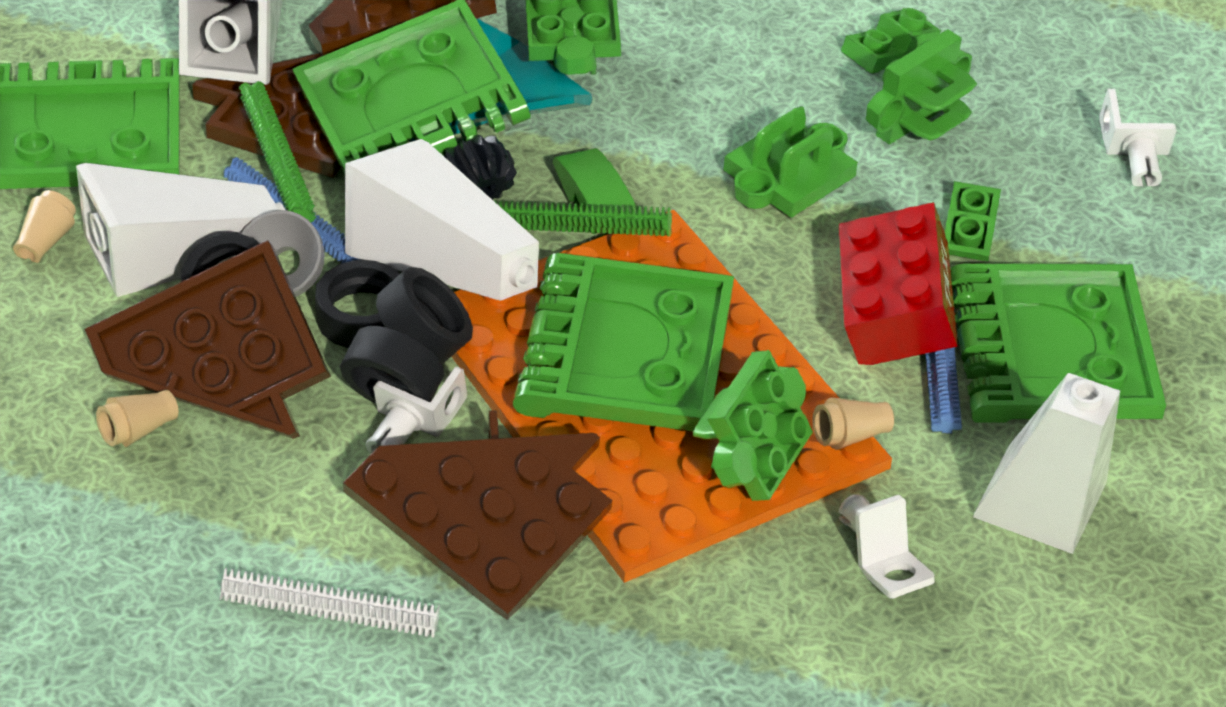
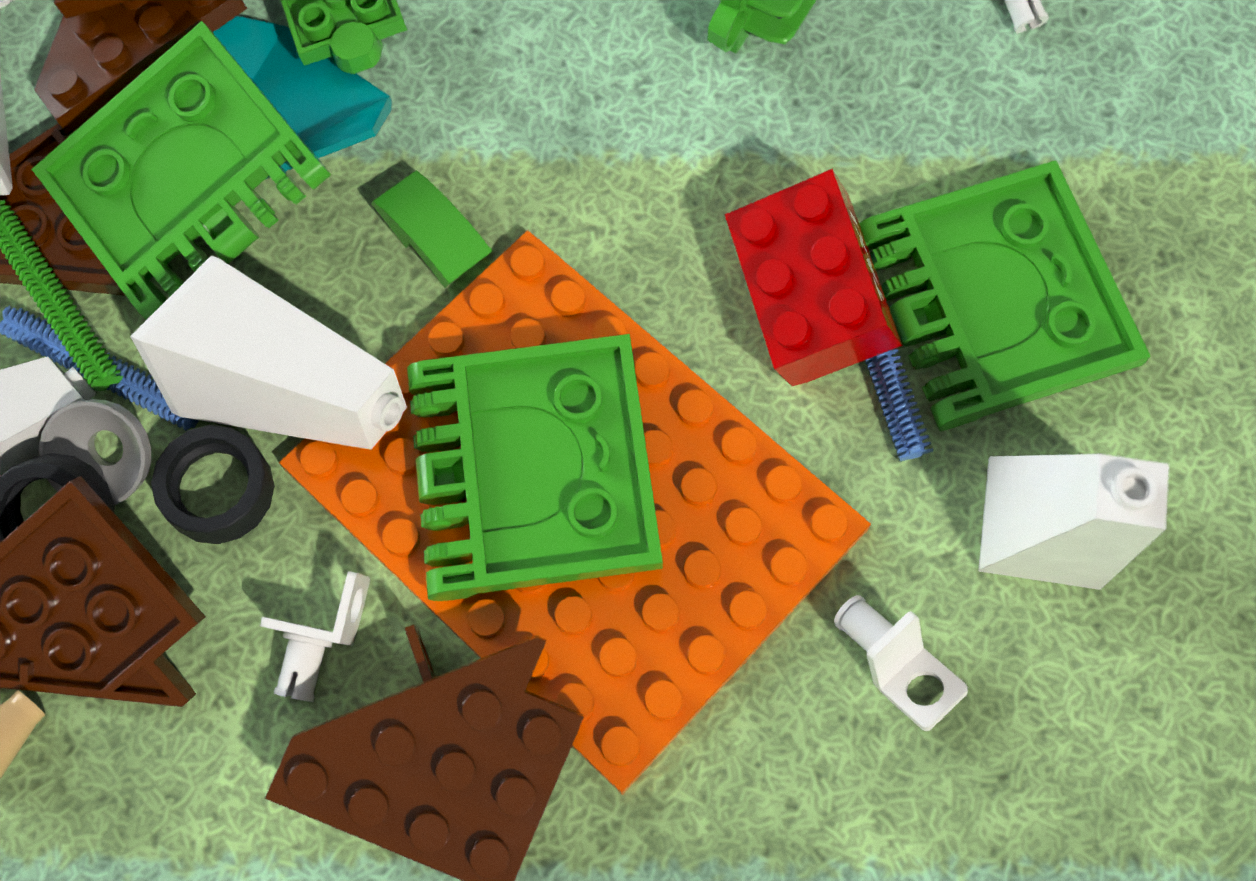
camera: 10 degrees left, 25 degrees up
(393, 359) = (274, 596): black tyre -> none
(425, 311) = (265, 532): black tyre -> none
(485, 164) = (289, 254): black gear -> none
(590, 220) = (420, 286): bright green axle -> none
(757, 426) = (721, 569): bright green piece -> none
(790, 164) = (639, 125): bright green piece -> none
(850, 421) = (818, 509): tan cone -> none
(971, 220) = (859, 143): bright green slope -> none

